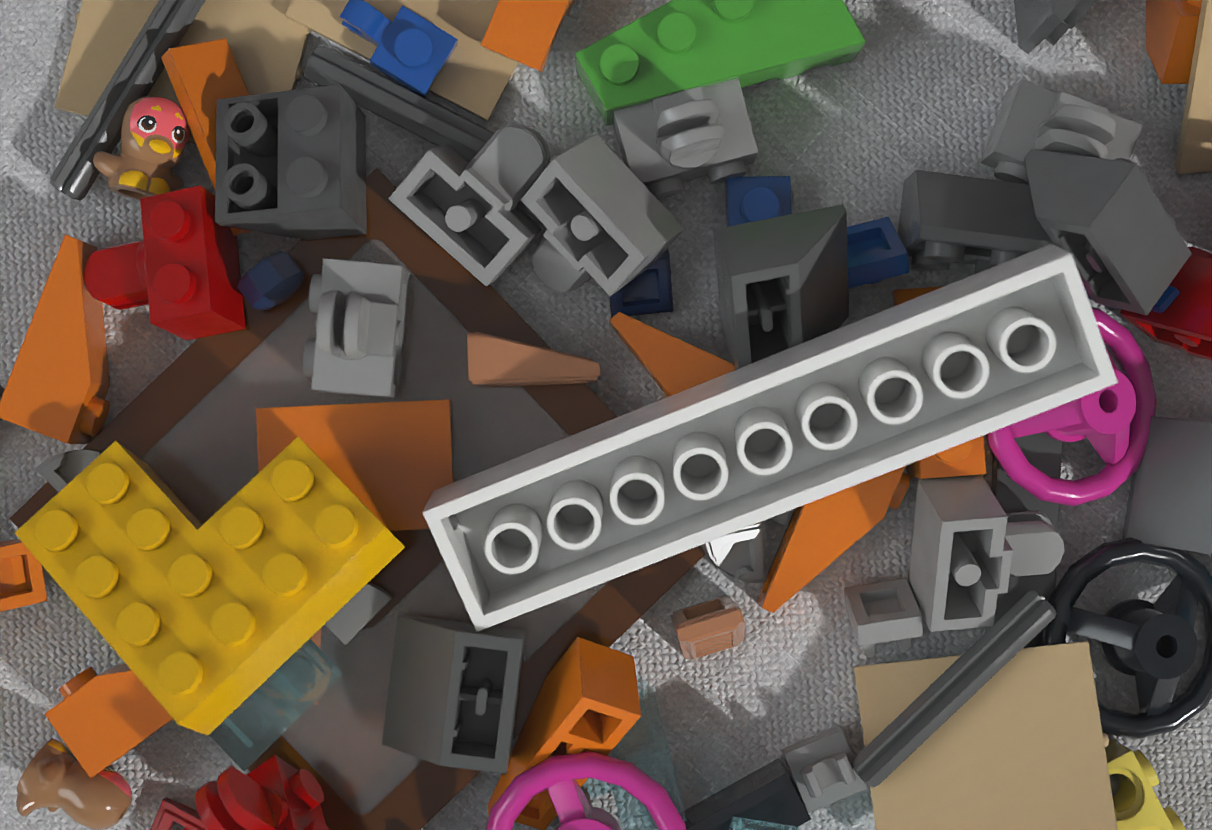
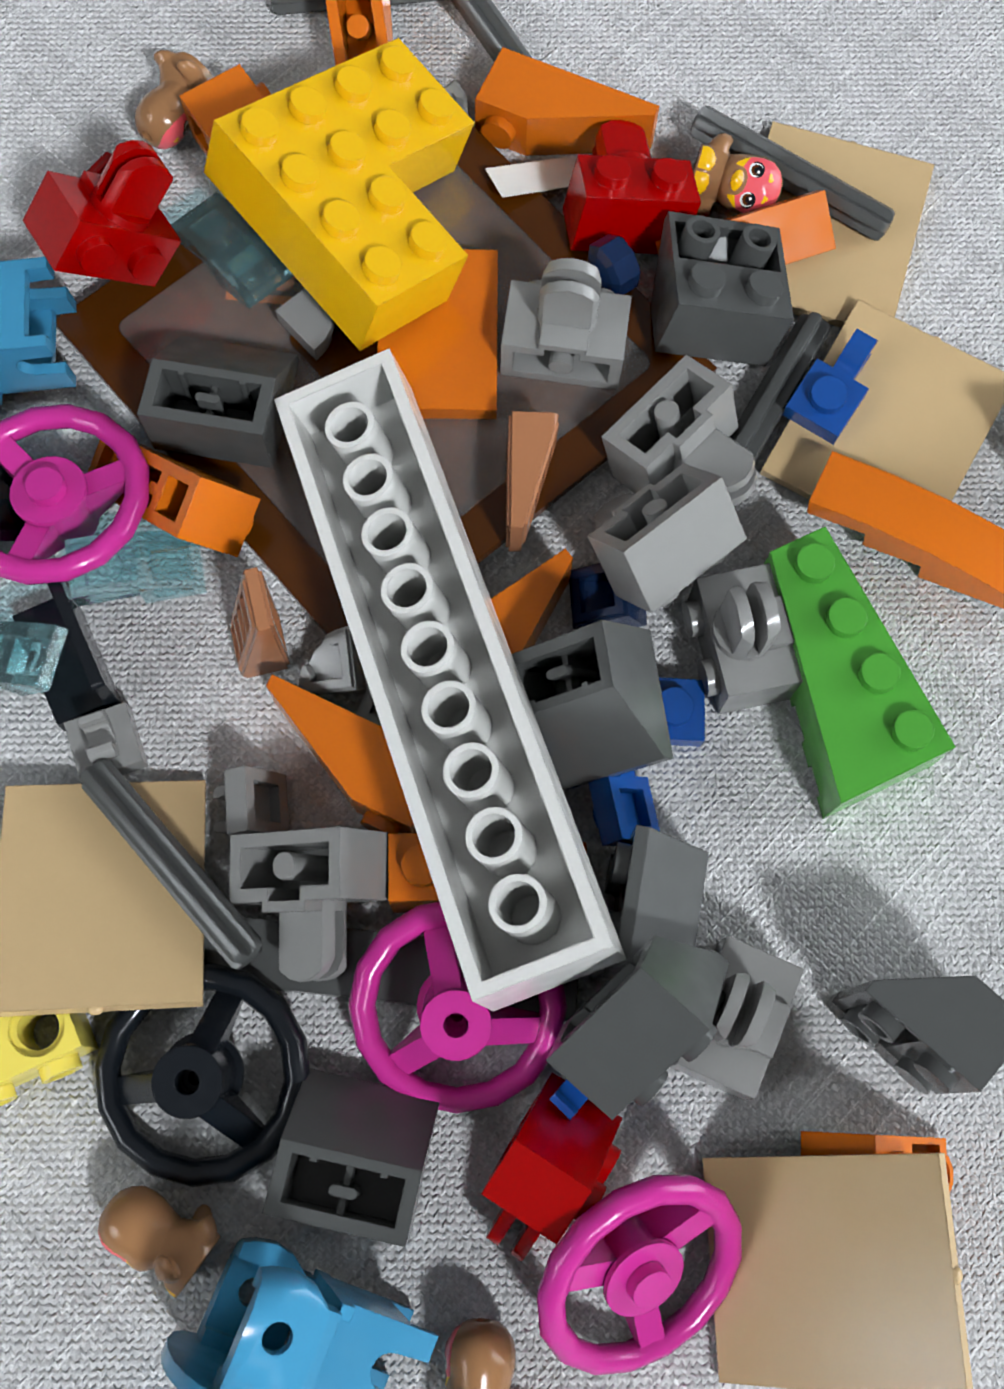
camera: 95 degrees right, 15 degrees down
(147, 368) = (532, 176): none -> white sticker

